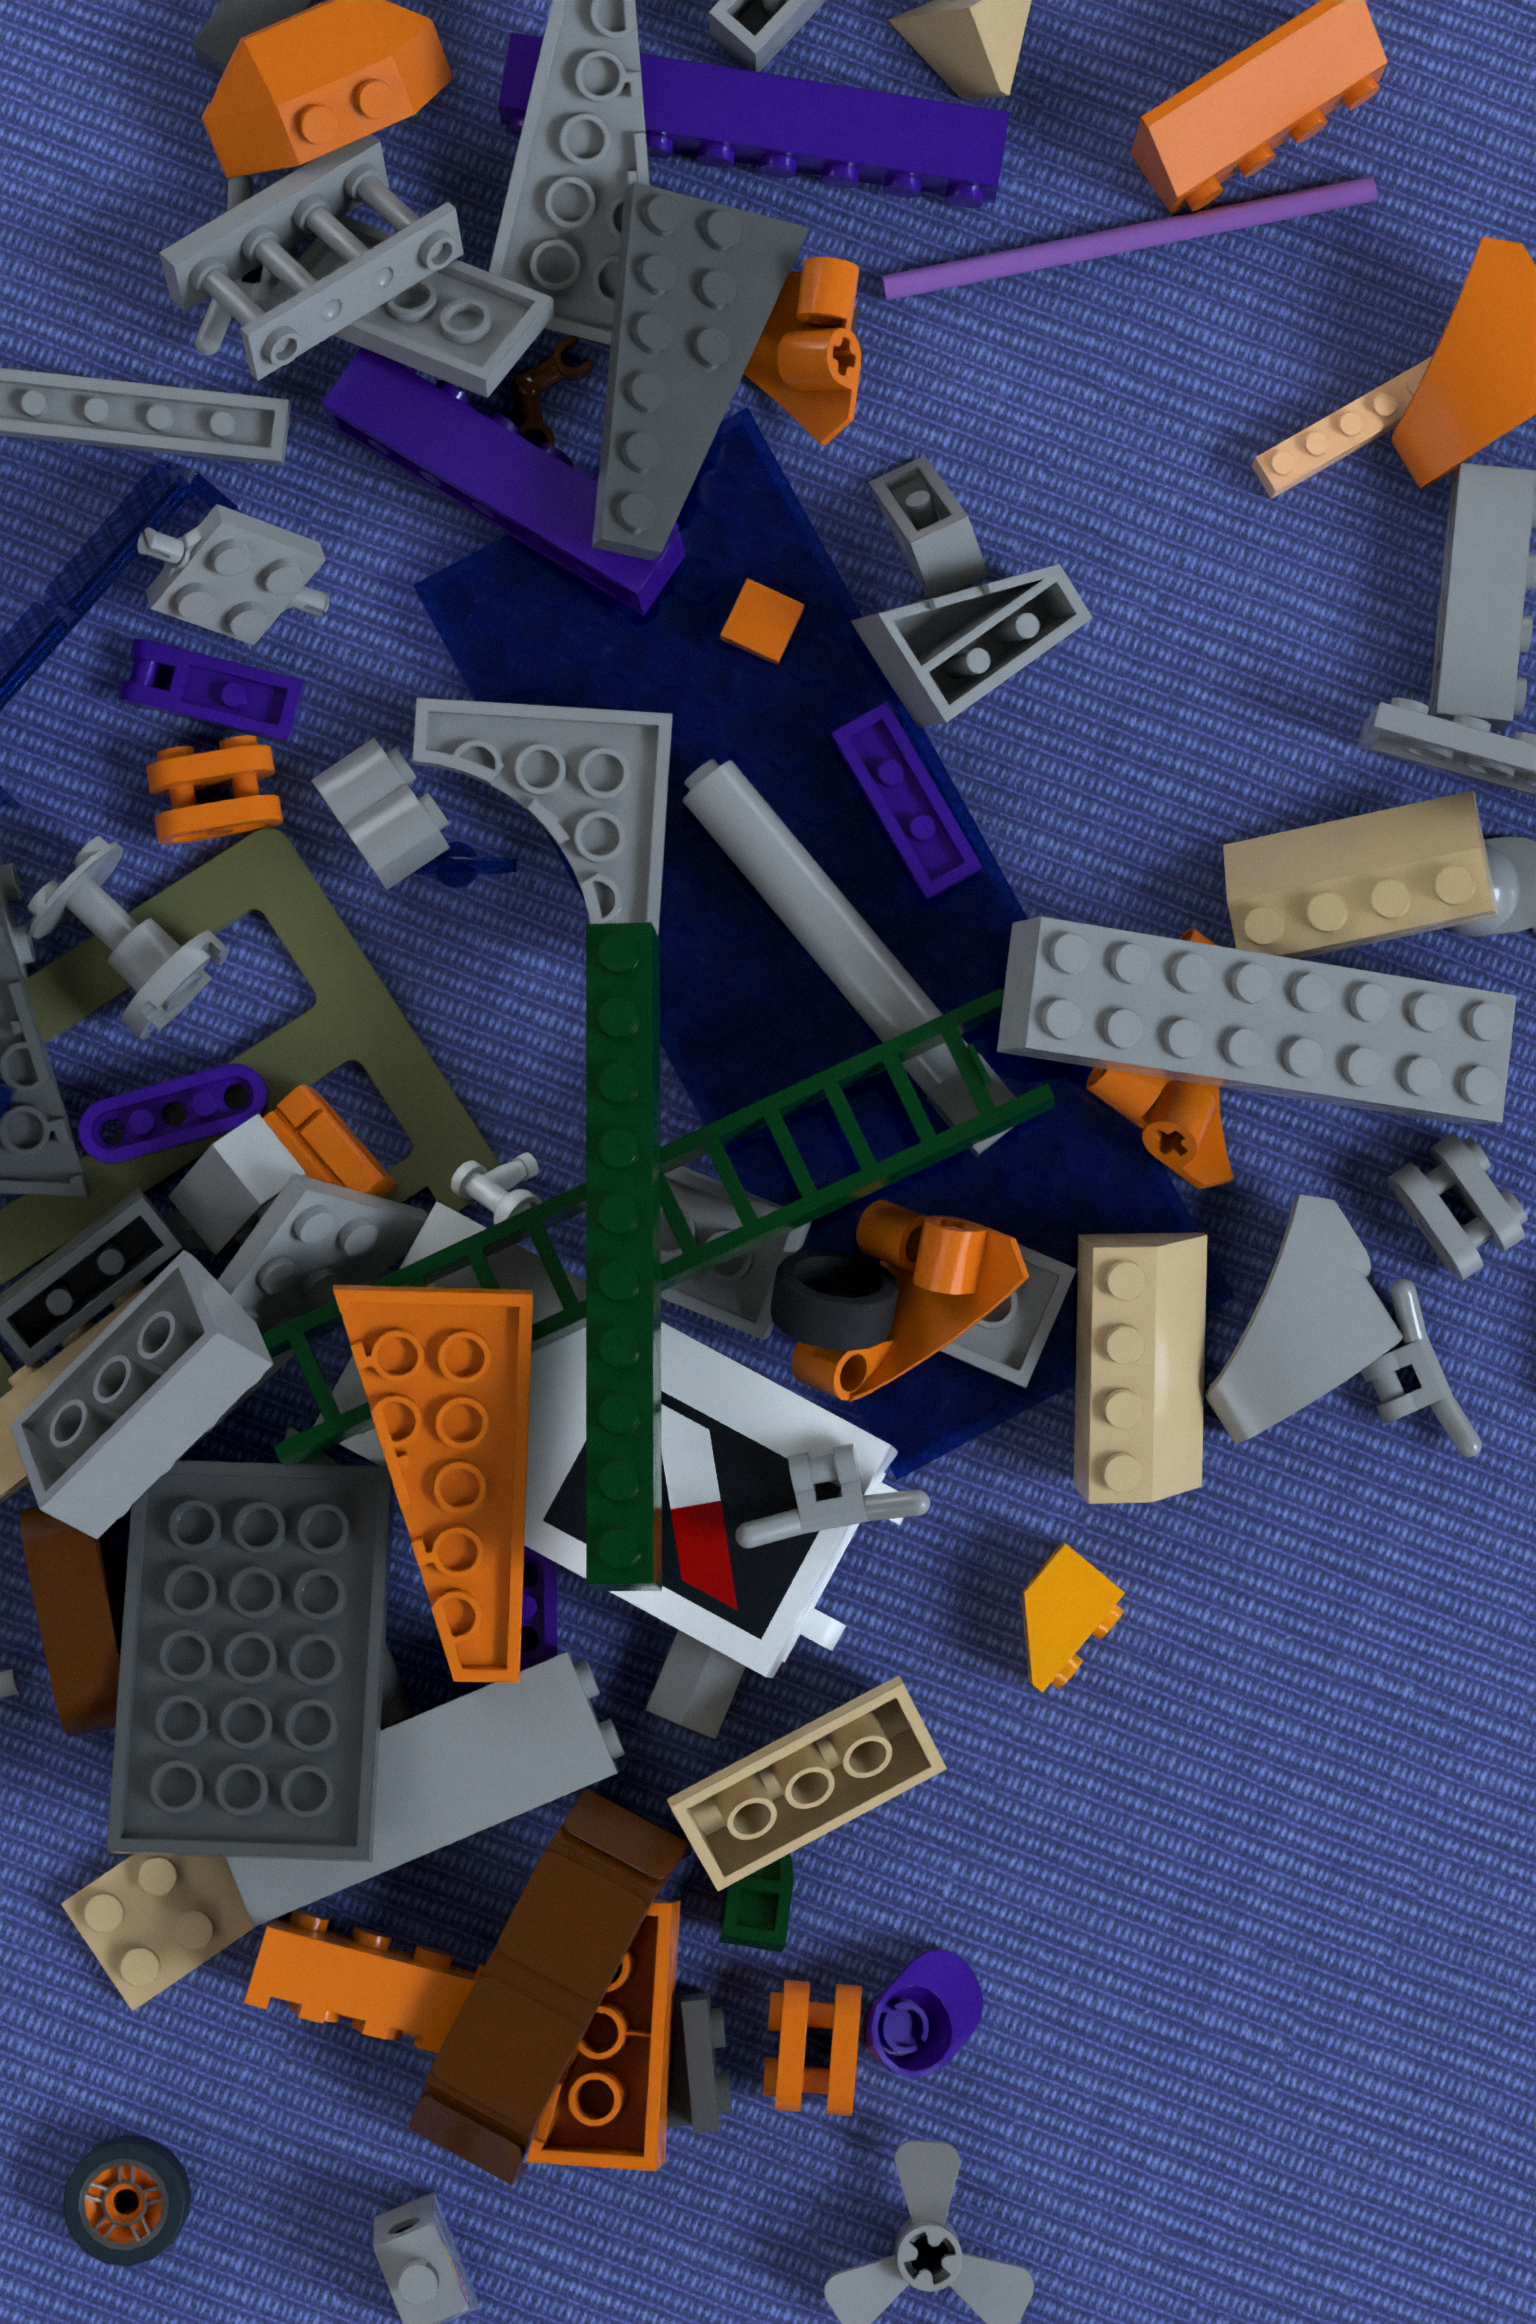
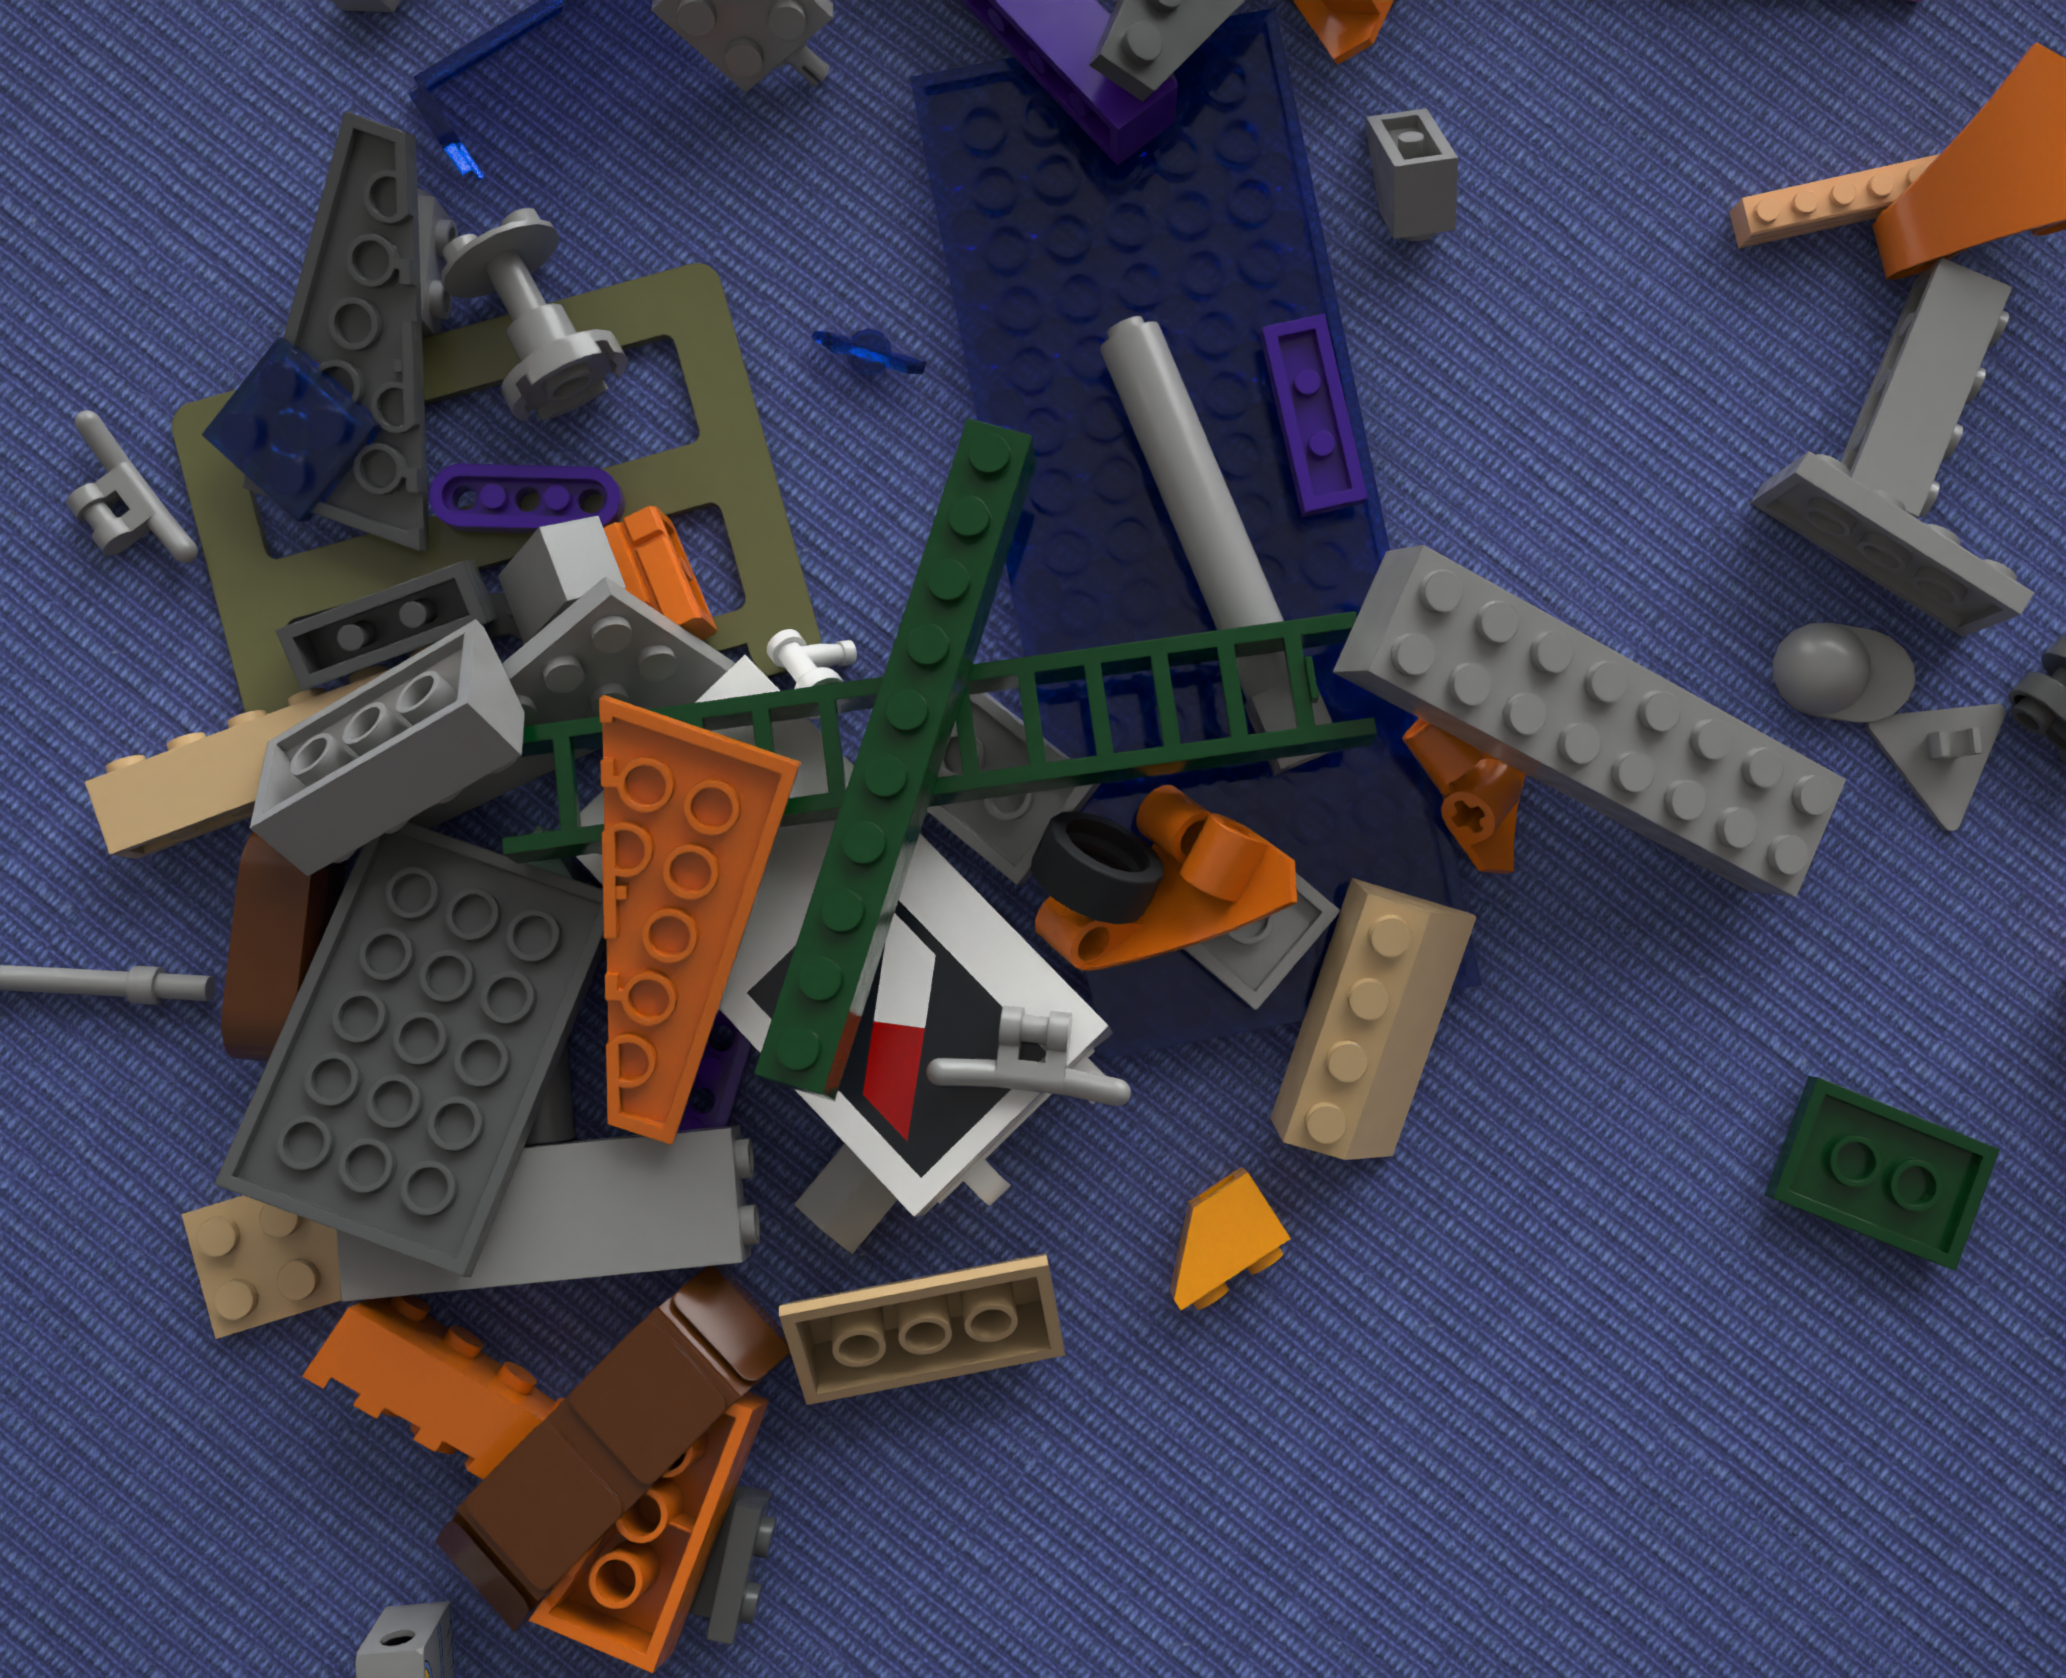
camera: 20 degrees right, 0 degrees up
(93, 2197) = (115, 1528): wheel -> none
(183, 772) = (643, 187): orange brick -> none
(214, 691) = (693, 121): dark purple plate -> none
(382, 813) = (813, 279): light grey brick -> none
(582, 774) = (1011, 293): light grey plate -> none
(759, 1908) = (843, 1431): dark green plate -> none
(762, 621) = (1228, 207): orange tile -> none
(786, 2075) = (819, 1599): orange brick -> none
(924, 2015) = (969, 1586): dark purple cap -> none
(969, 641) = (1418, 276): light grey wedge -> none
(1309, 1328) = (1546, 1038): light grey panel -> none
(1360, 879) = (1735, 623): tan slope -> none
(1433, 1383) = (1643, 1118): light grey piece -> none
(1494, 1213) = (1738, 934): light grey brick -> none

